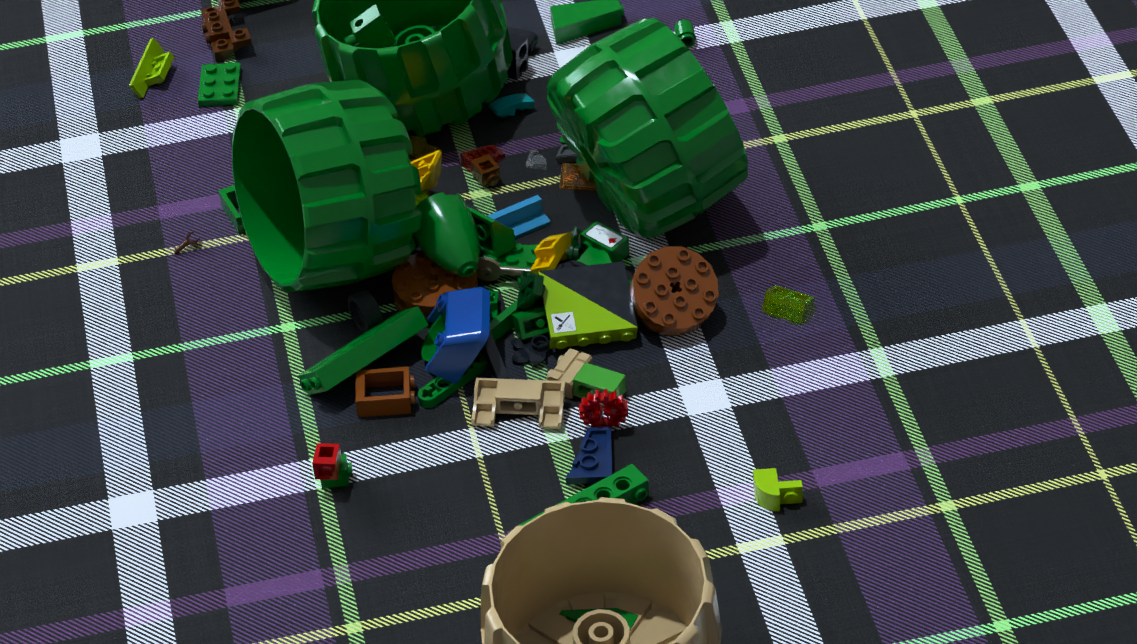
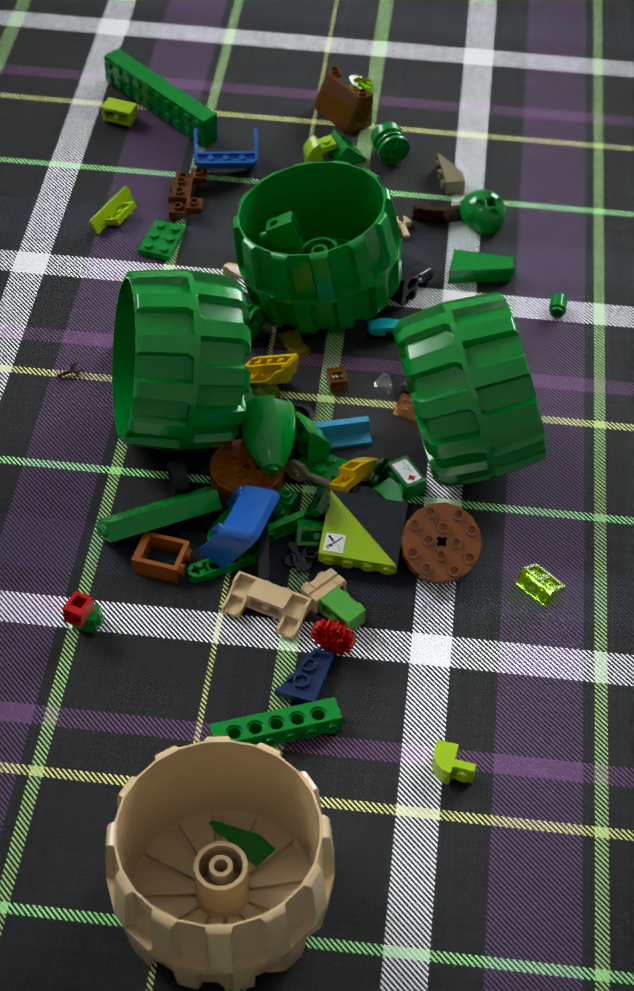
camera: 15 degrees right, 5 degrees up
(468, 156) = (340, 362): clear red slope -> none

